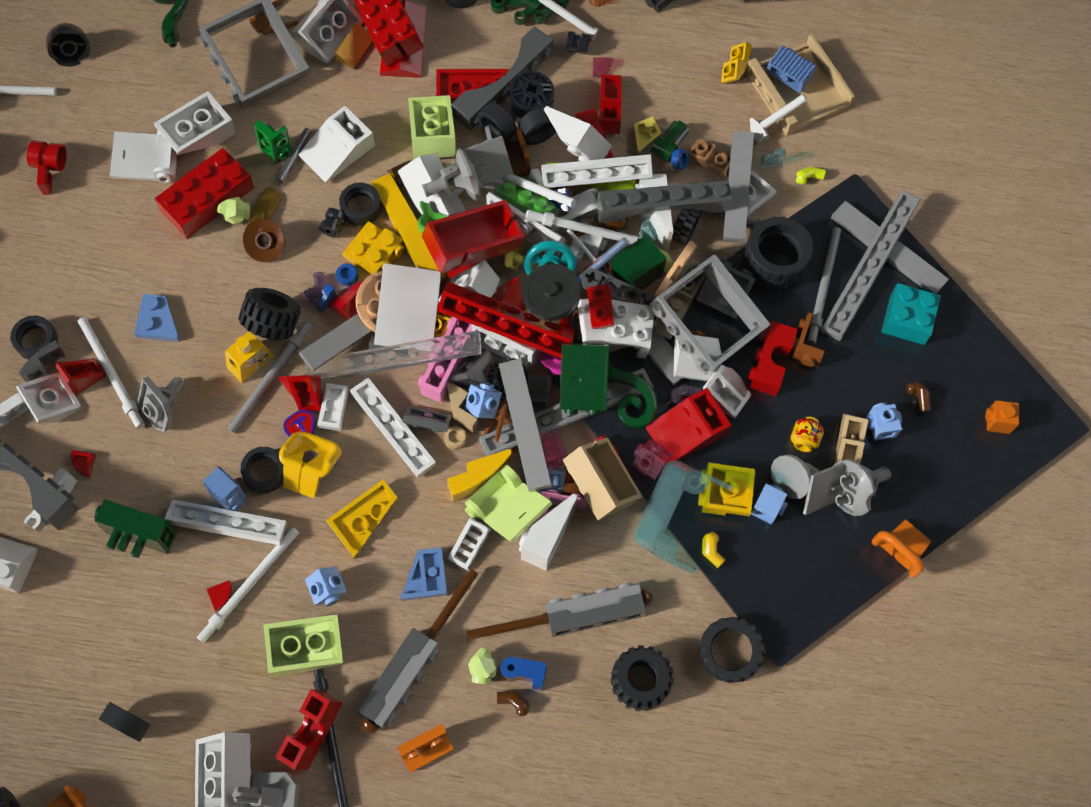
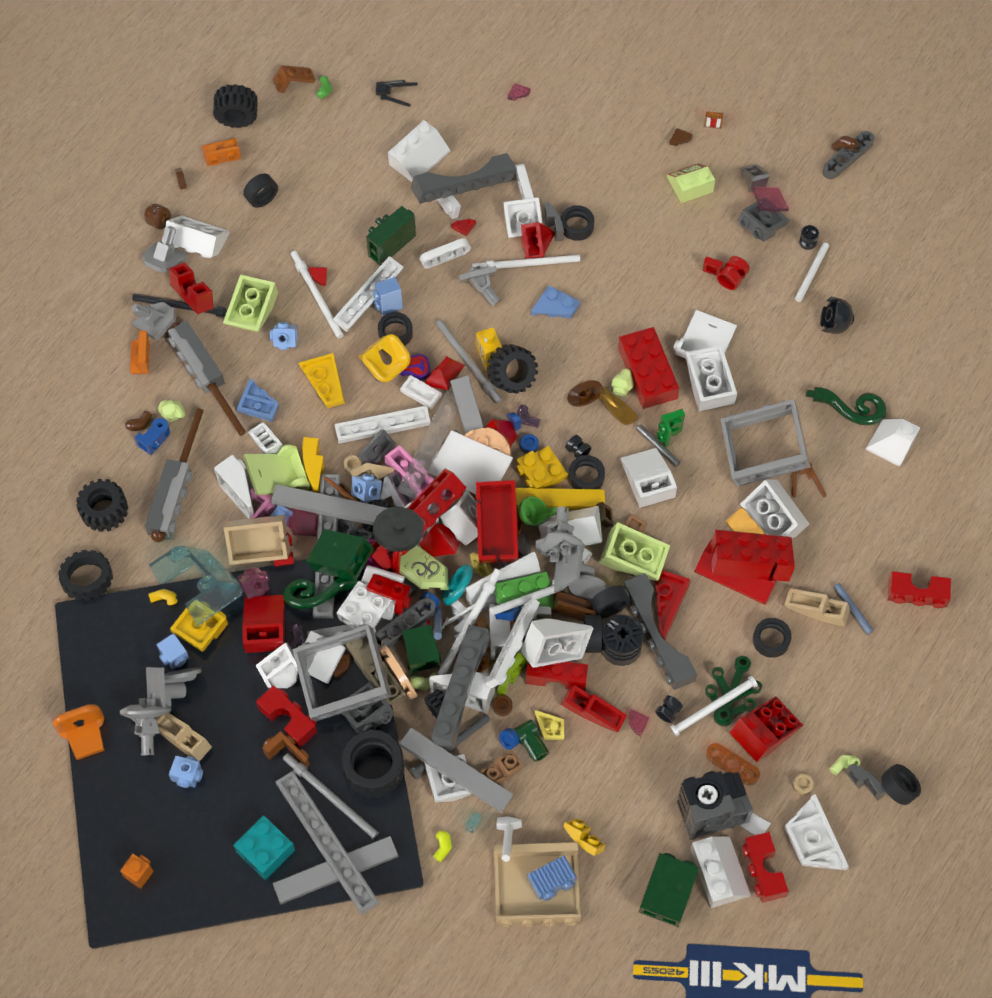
camera: 120 degrees right, 5 degrees down
(133, 462) = (445, 253): none -> white beam
(368, 756) = (154, 318): none -> light grey piece
(398, 143) = (635, 523): none -> medium nougat tile
(807, 434) = (210, 709): yellow head -> none
(922, 393) = (191, 819): reddish brown arm -> none

